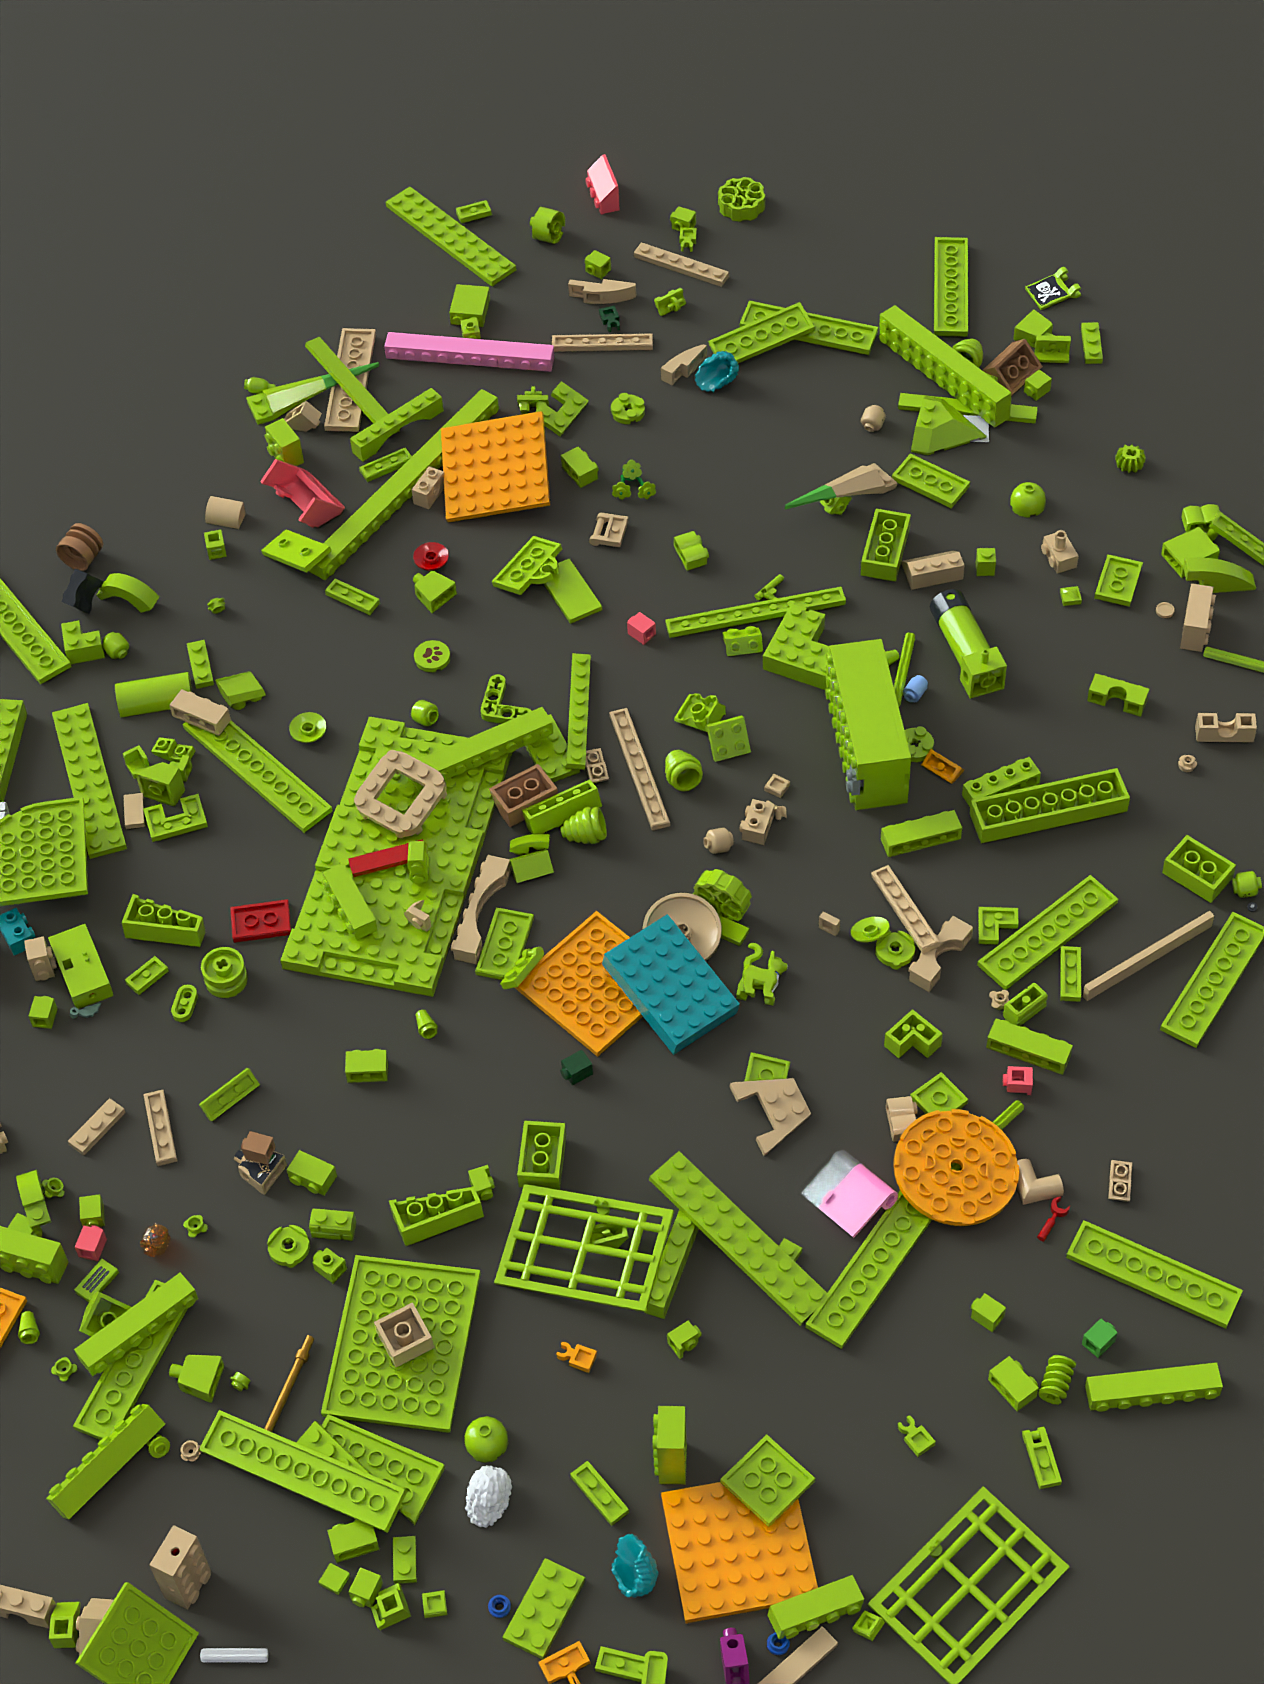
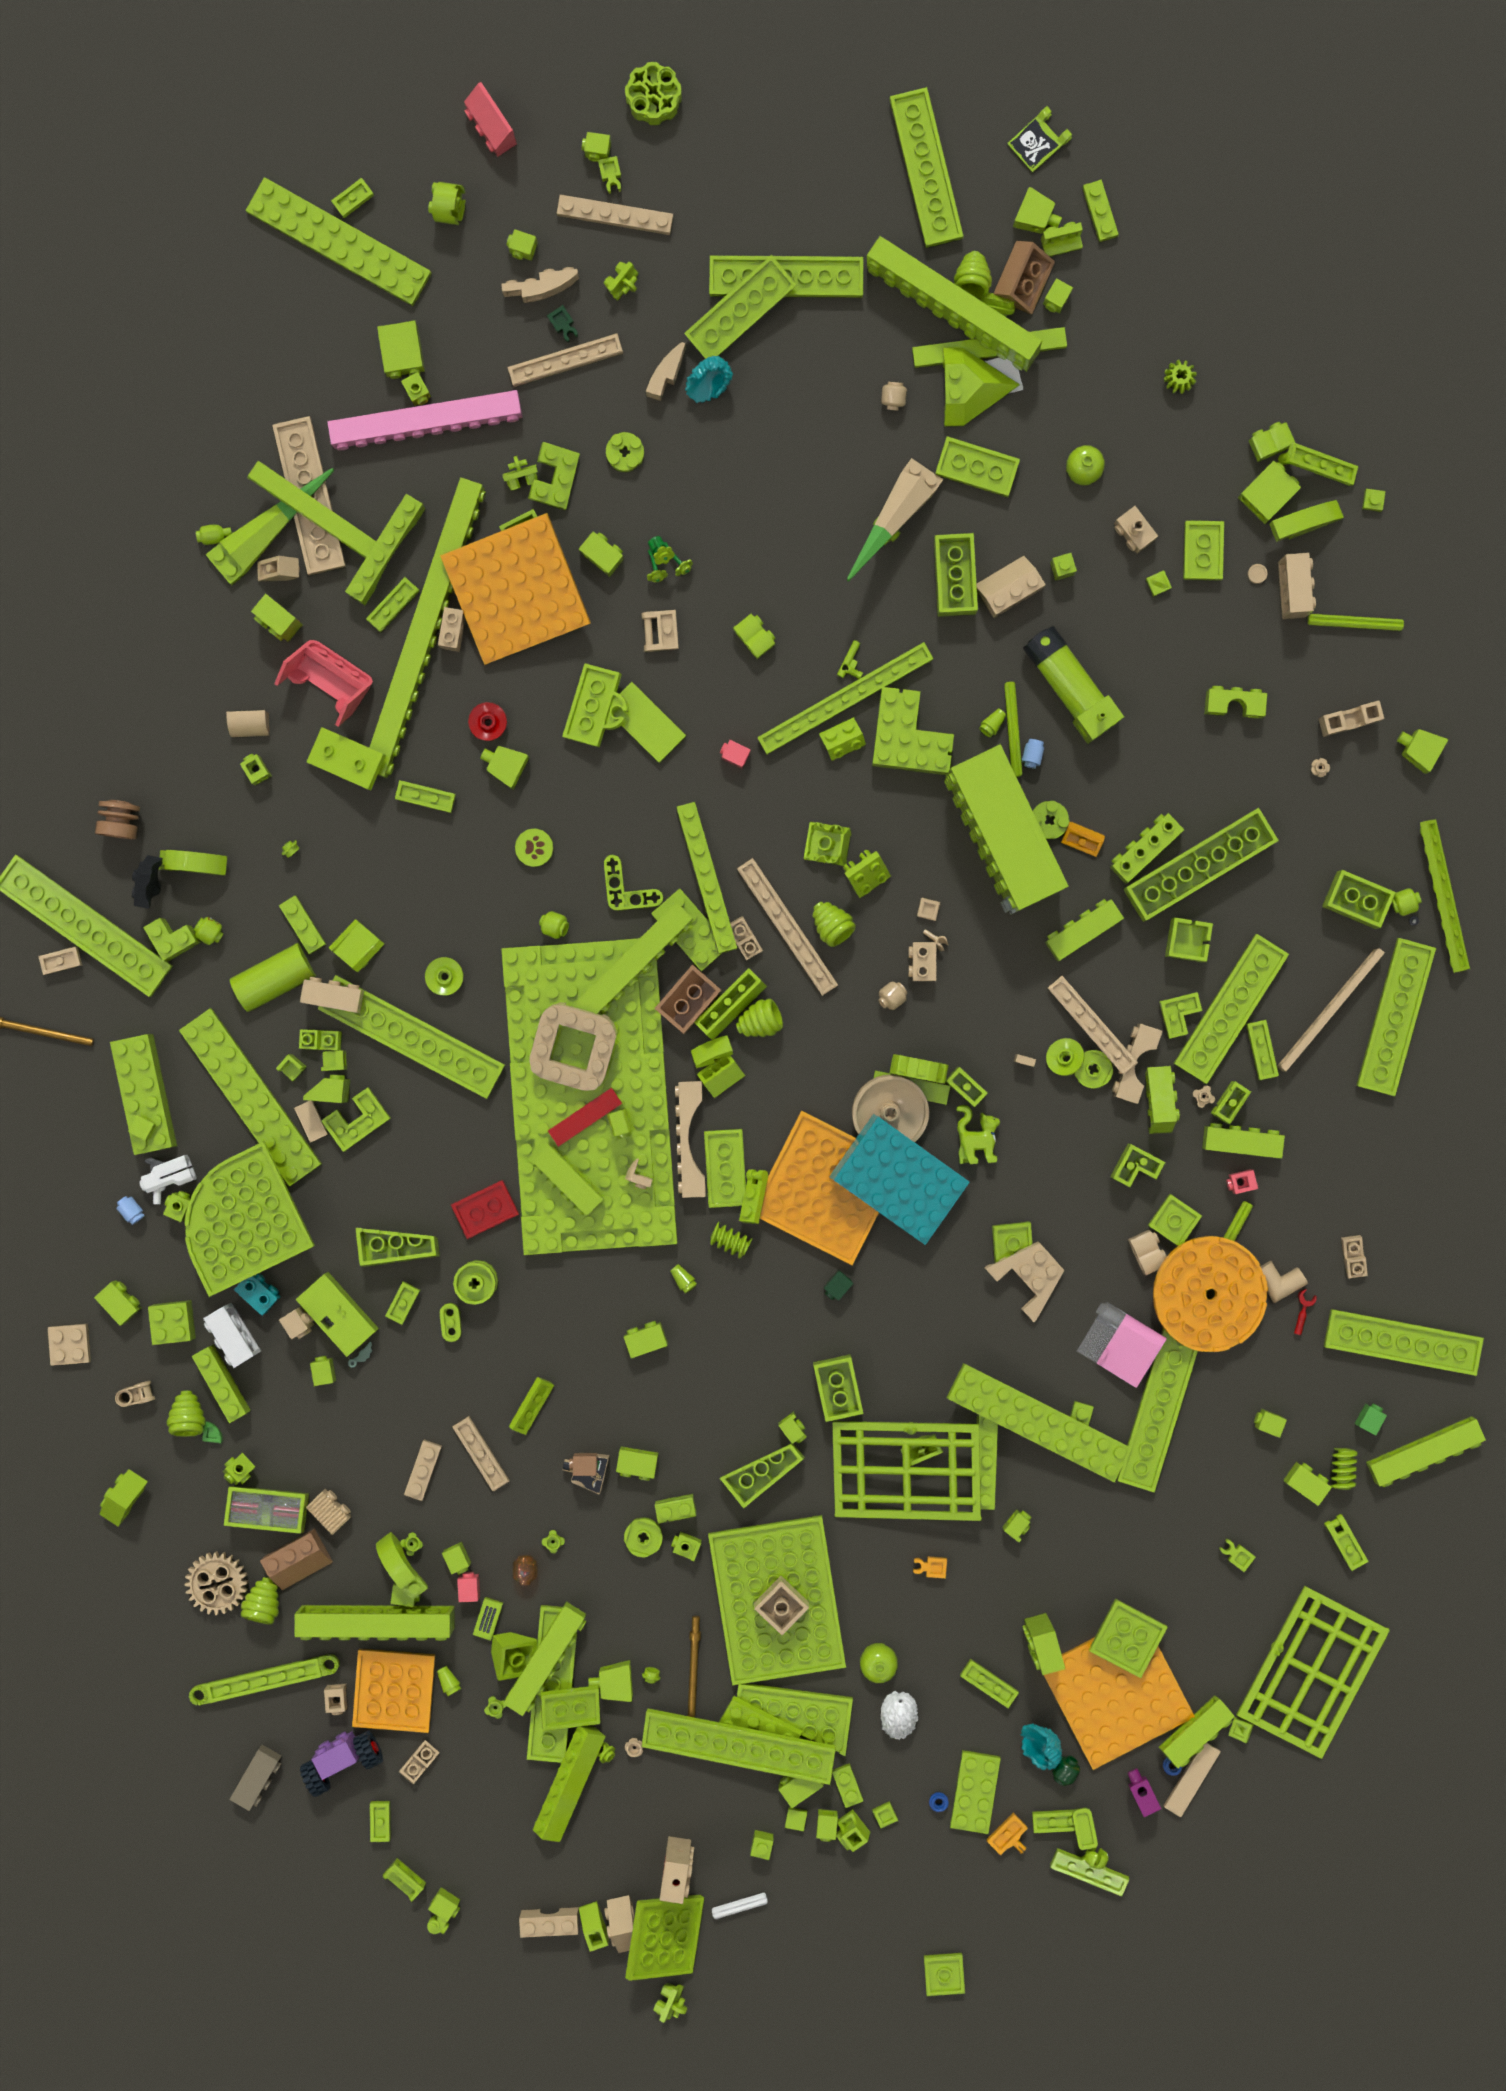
camera: 20 degrees left, 35 degrees up
(141, 1379) = (570, 1708): none -> lime plate
(285, 1590) = (761, 1845): none -> lime brick
(484, 1001) = (730, 1241): none -> lime piece
(654, 1610) = (1066, 1771): none -> dark green head
(764, 928) = (966, 1086): none -> lime brick
(954, 989) = (1161, 1099): none -> lime wedge
(1016, 865) = (1187, 940): none -> lime piece

